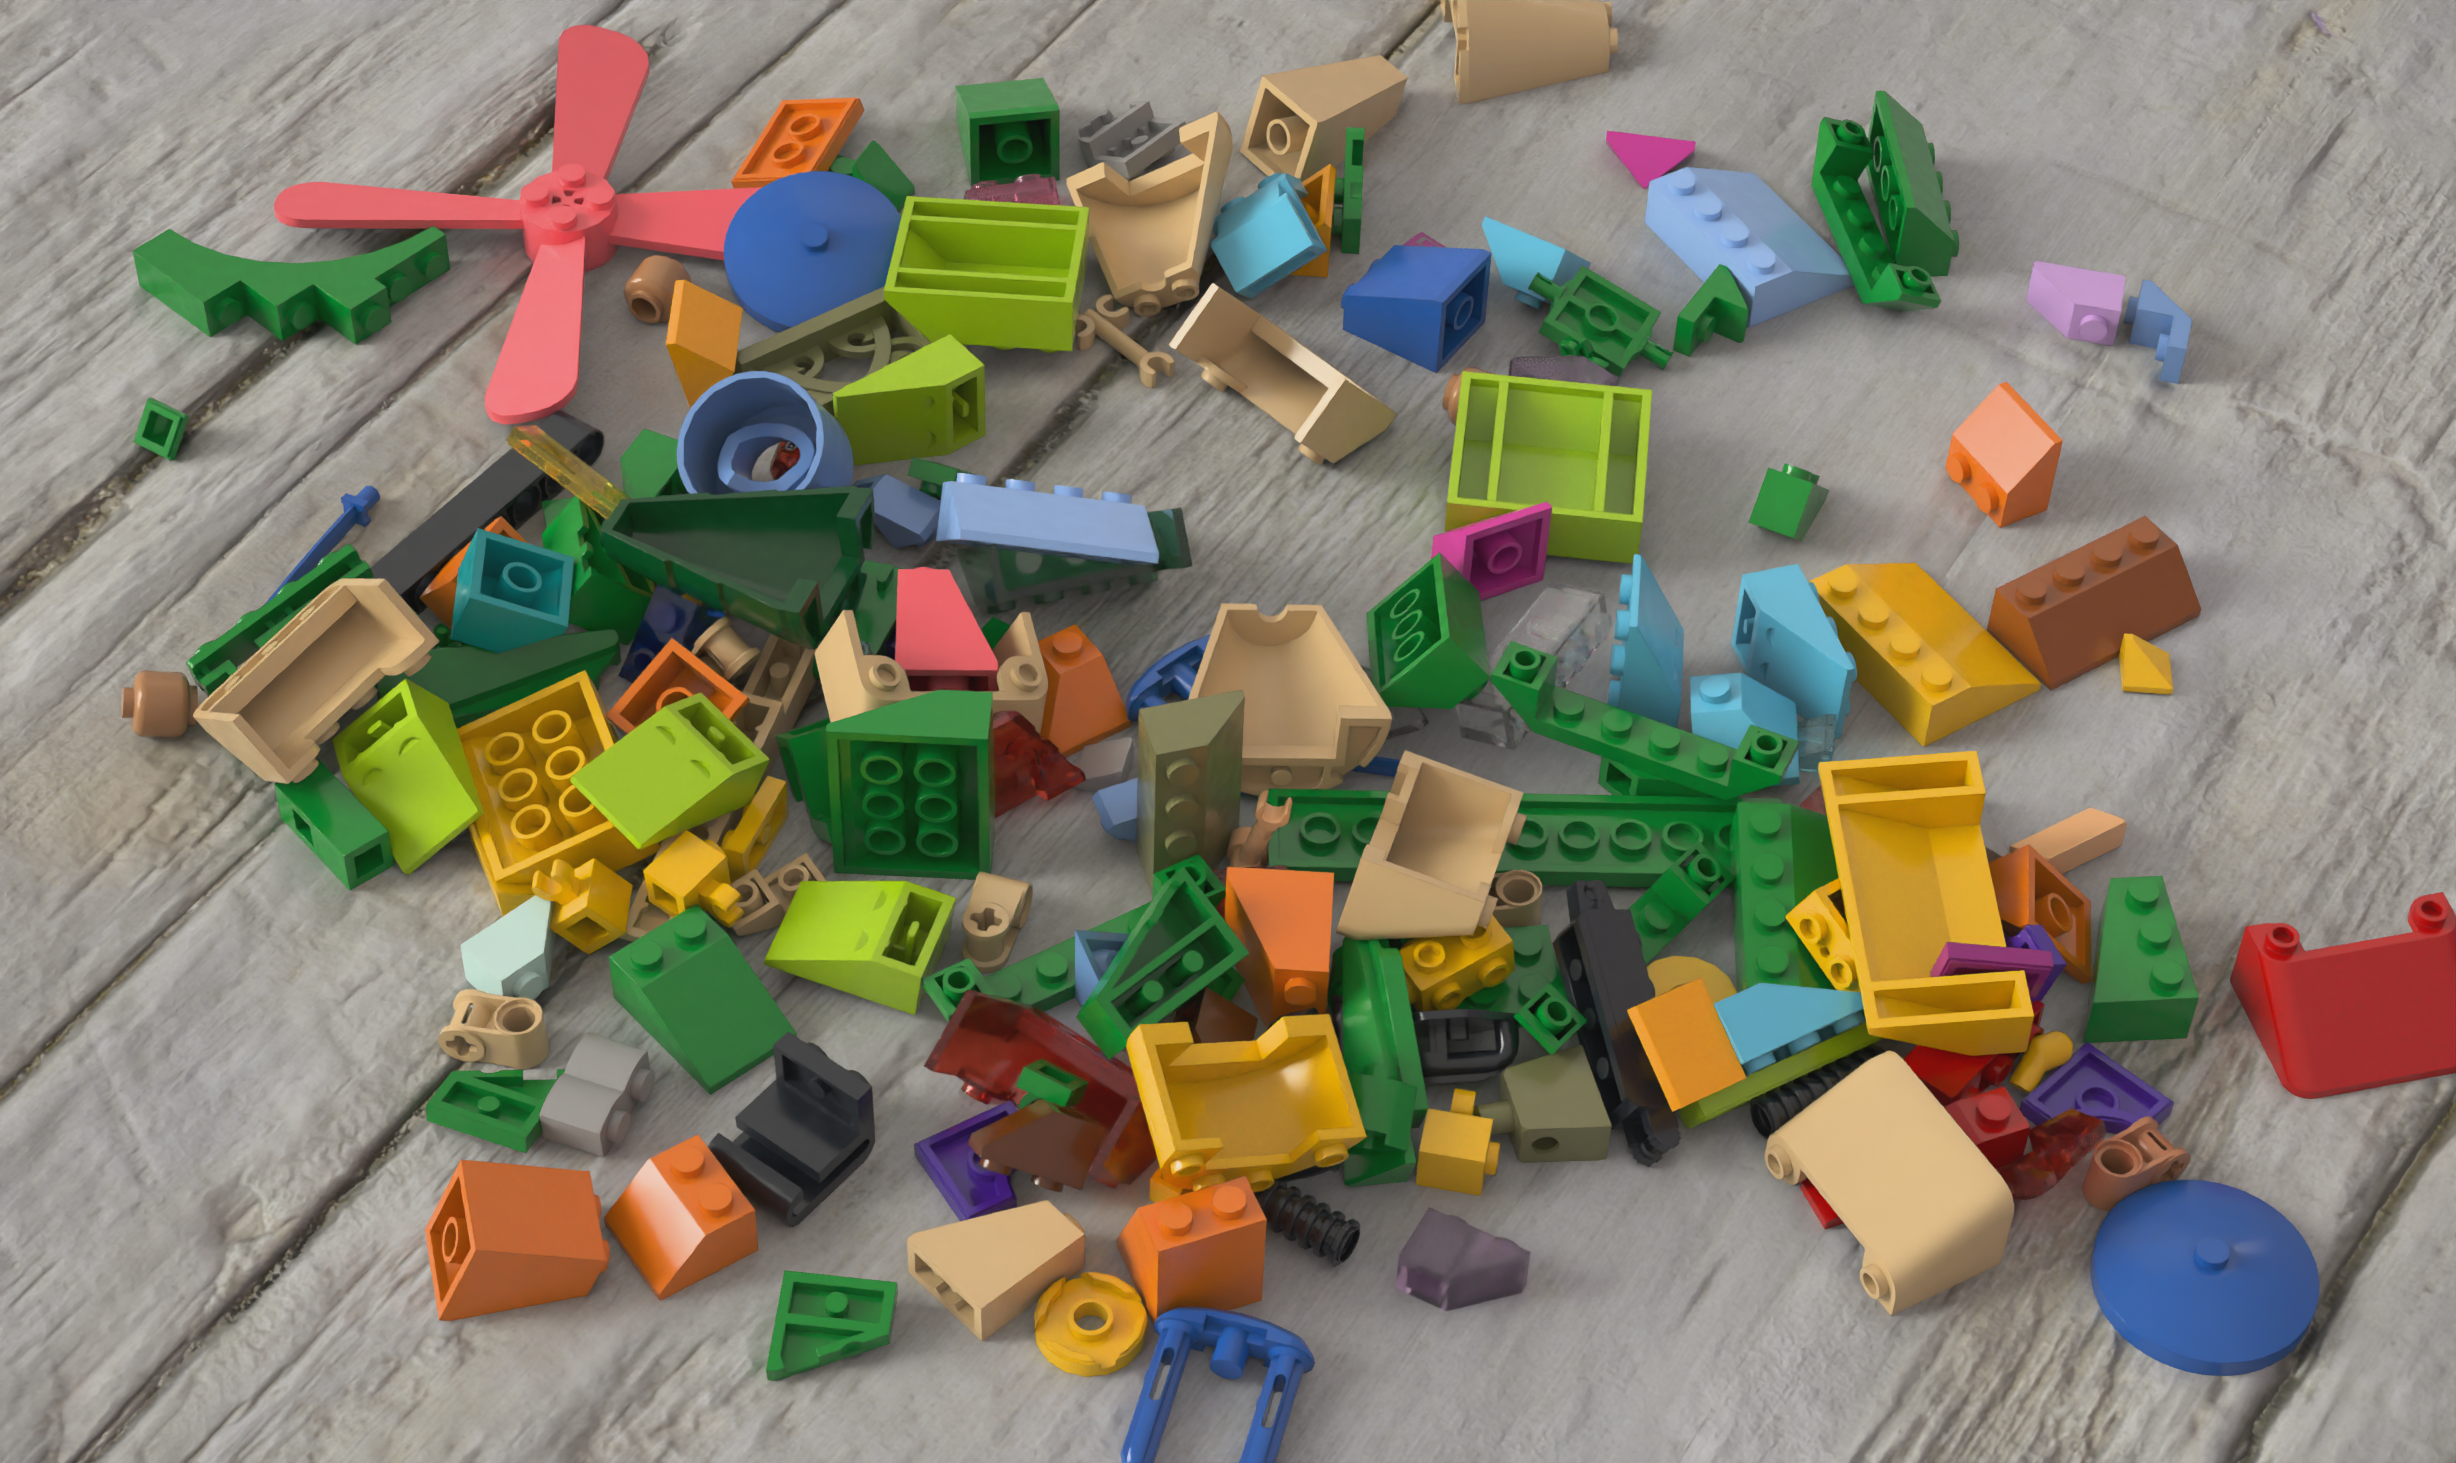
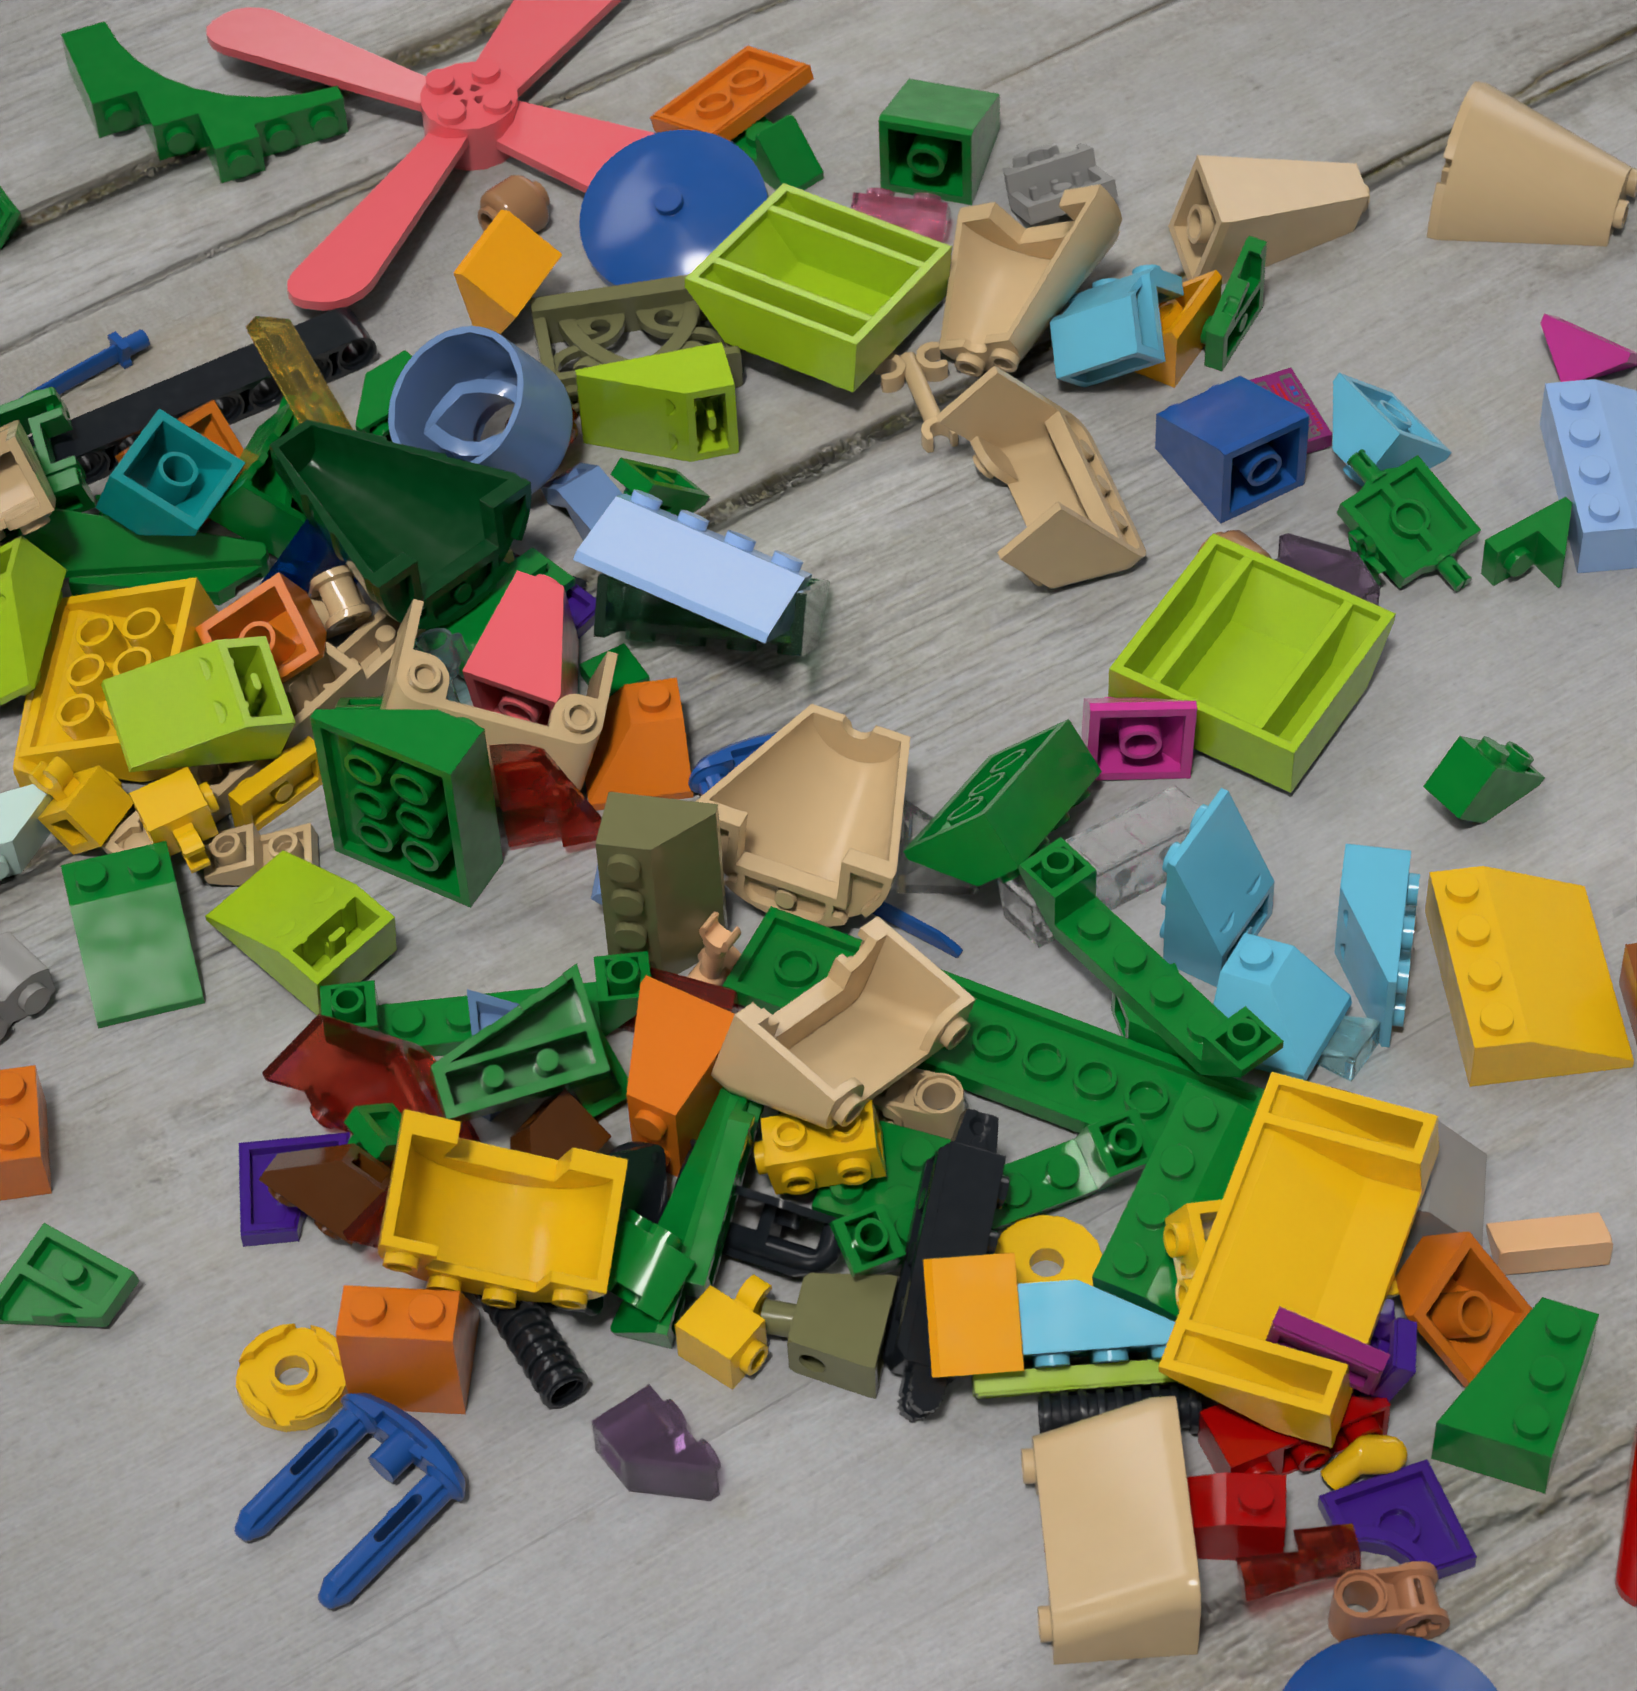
camera: 30 degrees right, 5 degrees up
(800, 1133) = (135, 1104): black piece -> none
(994, 919) = (439, 948): tan piece -> none
(997, 1262) = (241, 1287): tan slope -> none

